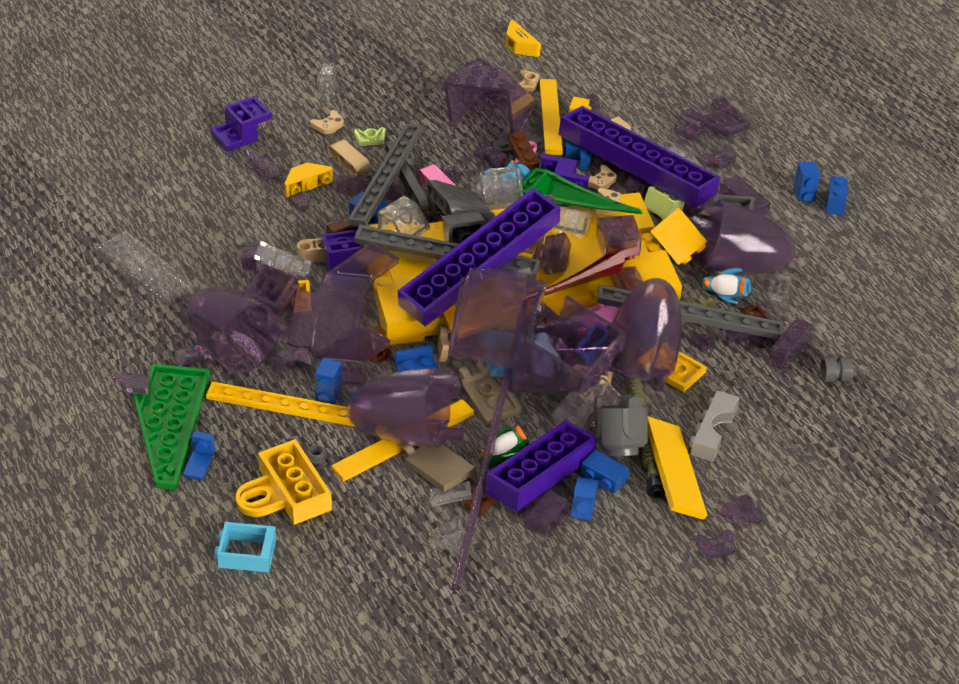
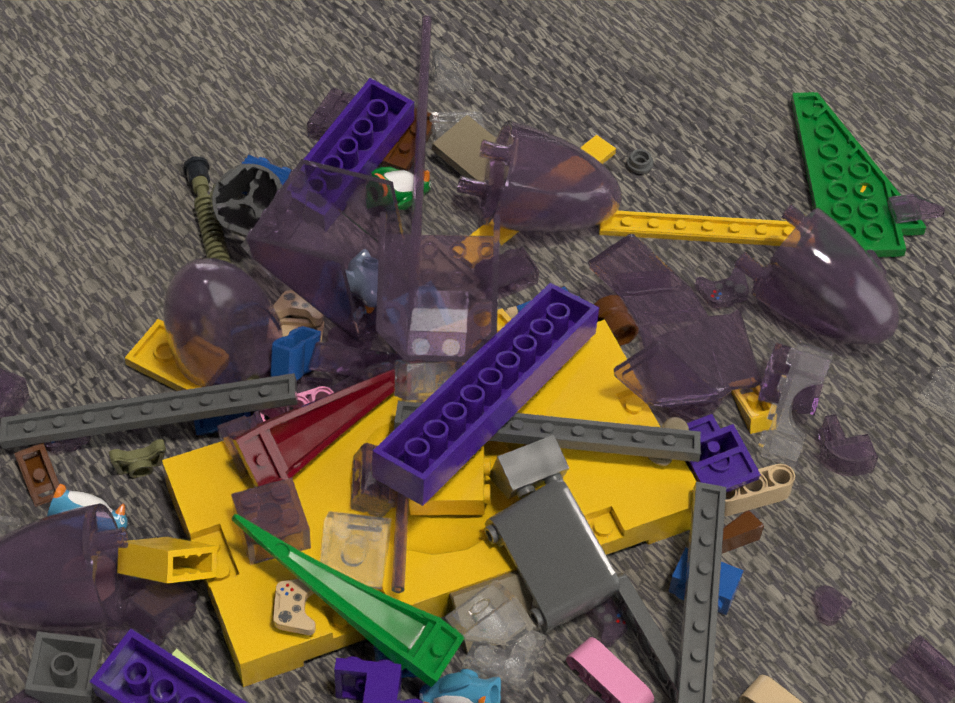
camera: 170 degrees right, 10 degrees up
(201, 456) = (781, 133): blue bracket -> none
(249, 533) = (678, 20): medium azure window -> none
(287, 483) = (656, 106): yellow brick -> none
(307, 177) = (840, 647): yellow slope -> none
(328, 381) = (660, 233): blue brick -> none
(356, 185) = (733, 655): bracket -> none
(403, 217) = (637, 501): clear slope -> none
(584, 498) = (287, 140): blue brick -> none
(675, 468) = (172, 195): yellow tile -> none
(707, 441) = (105, 293): light grey arch -> none
(716, 547) = (119, 107): clear purple piece -> none
(742, 515) = (84, 159): clear purple plate -> none

